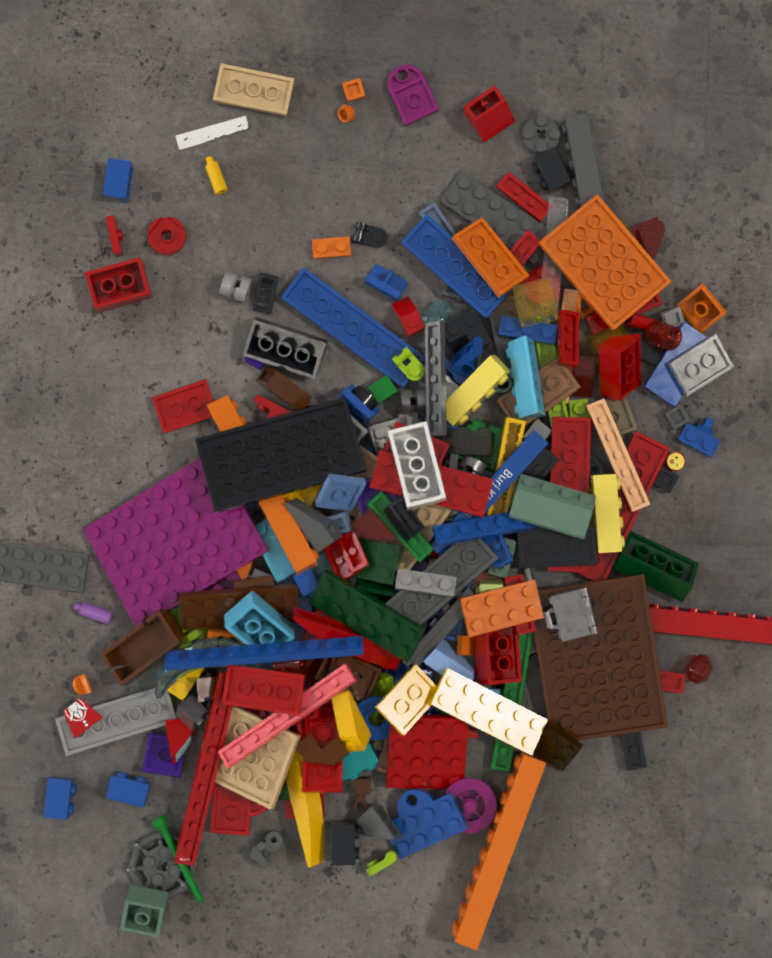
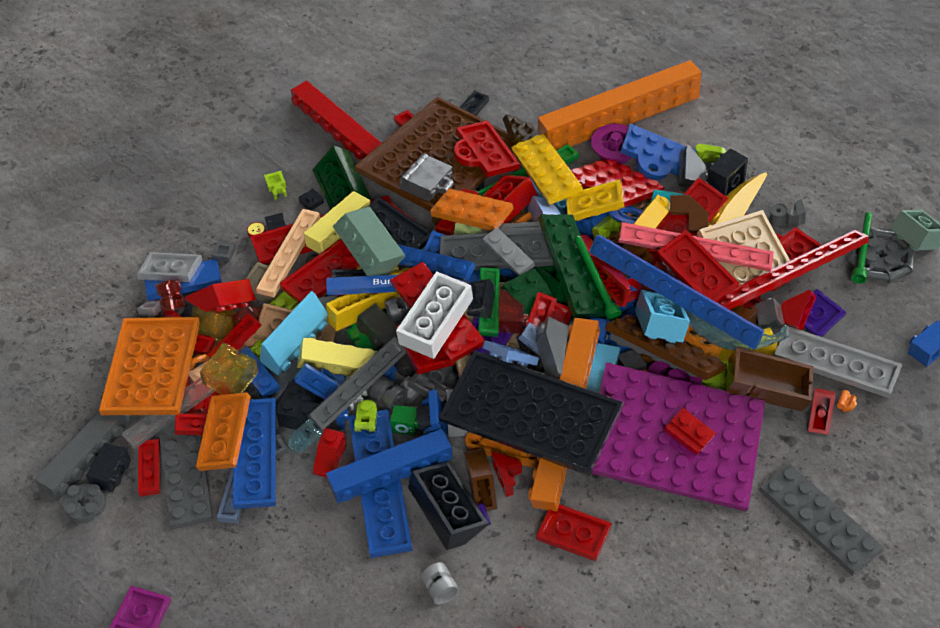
camera: 135 degrees left, 35 degrees down
(81, 717) = (866, 379): red sticker -> none
(93, 661) = (821, 411): none -> red slope
(94, 612) = (791, 443): medium lavender cylinder -> none
(128, 789) = (867, 311): blue brick -> none
(162, 546) = (689, 431): none -> red plate
(254, 581) = (638, 357): reddish brown tile -> none
(275, 278) = (409, 573): black slope -> none
(306, 604) = (611, 309): none -> green piece
(331, 247) = (332, 555): orange plate -> none
(350, 338) = (389, 466): none -> blue brick
(377, 236) = (288, 533): black plate -> none
(386, 282) = (318, 494): blue panel -> none
(489, 114) = (100, 547): red slope -> none
(564, 695) = (484, 149): none -> red plate
(650, 235) = (97, 368): clear red slope -> none
(665, 530) = (311, 200): none -> black plate
(698, 669) = (381, 115): clear red head -> none
(700, 437) = (222, 231): blue hinge -> none
(701, 308) = (124, 298): orange slope -> none
(710, 520) = (276, 183): none -> lime plate

